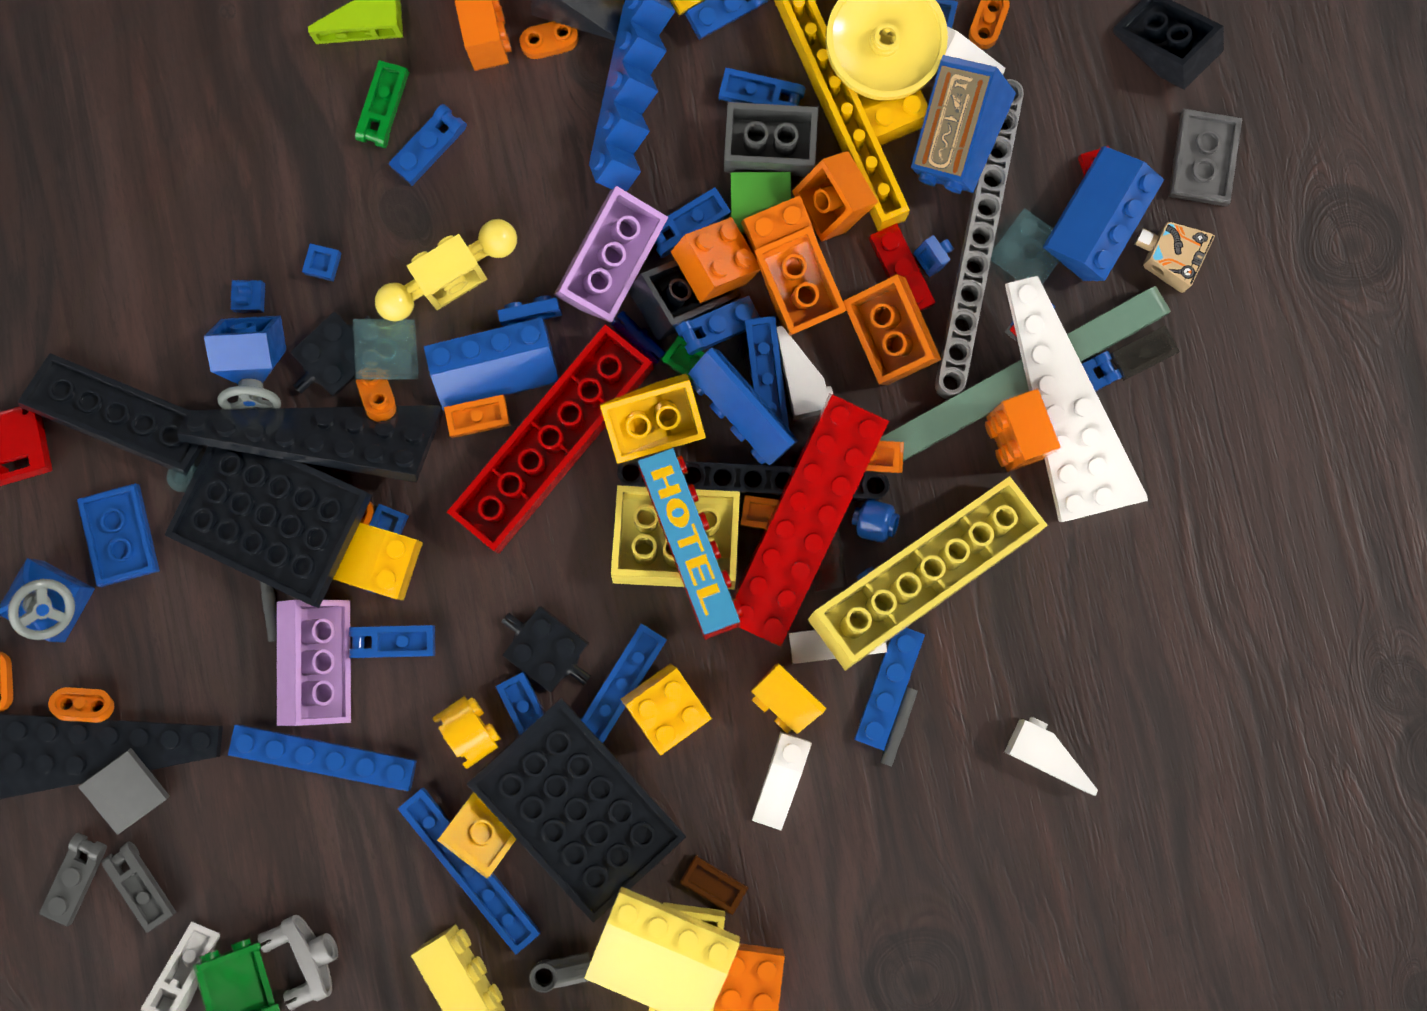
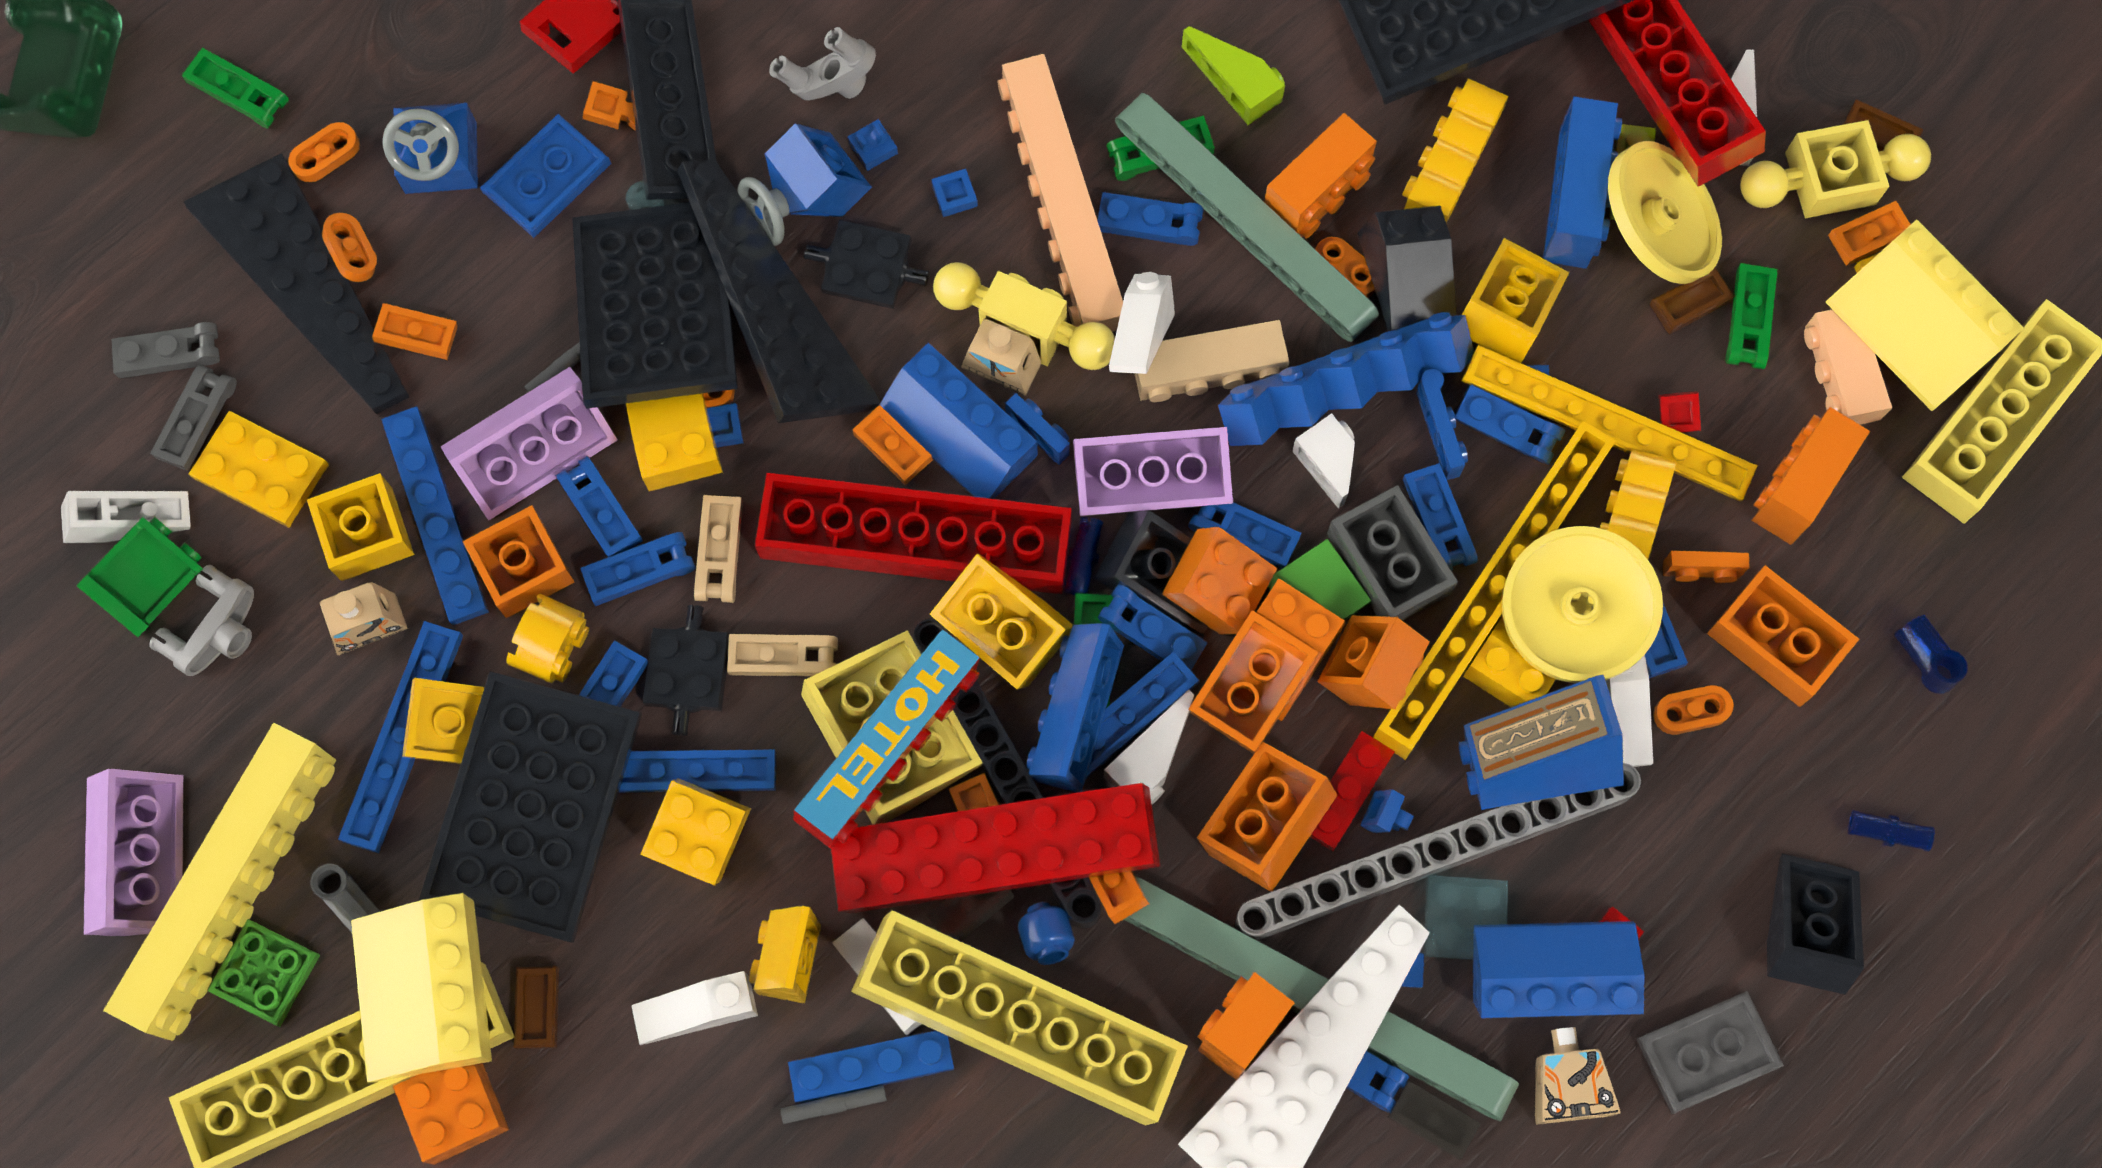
camera: 55 degrees right, 10 degrees down
(96, 460) = (608, 106): none -> orange plate
(124, 791) = (284, 342): tile -> none
(177, 694) = (415, 331): none -> orange plate
(178, 287) = (837, 72): none -> light grey connector
(207, 861) = (258, 469): none -> yellow plate
(300, 814) = (360, 527): none -> yellow brick
(367, 850) = (360, 618): none -> tan torso
(370, 190) = (1062, 192): none -> light nougat brick
(373, 393) = (851, 327): orange plate -> none
(385, 349) = (902, 309): clear light blue plate -> none
(397, 719) = (518, 561): none -> orange brick
(453, 641) = (637, 568): none -> blue plate
(463, 304) = (1000, 355): none -> tan torso
(470, 79) = (1247, 217): none -> sand green beam
(473, 576) = (718, 547): none -> tan plate
(505, 195) = (1142, 322): none -> white slope
(556, 169) = (1214, 360): none -> tan brick
(577, 580) = (779, 654): none -> tan plate
(675, 135) = (1328, 456): none -> white slope
(699, 49) = (1441, 424): none -> blue plate

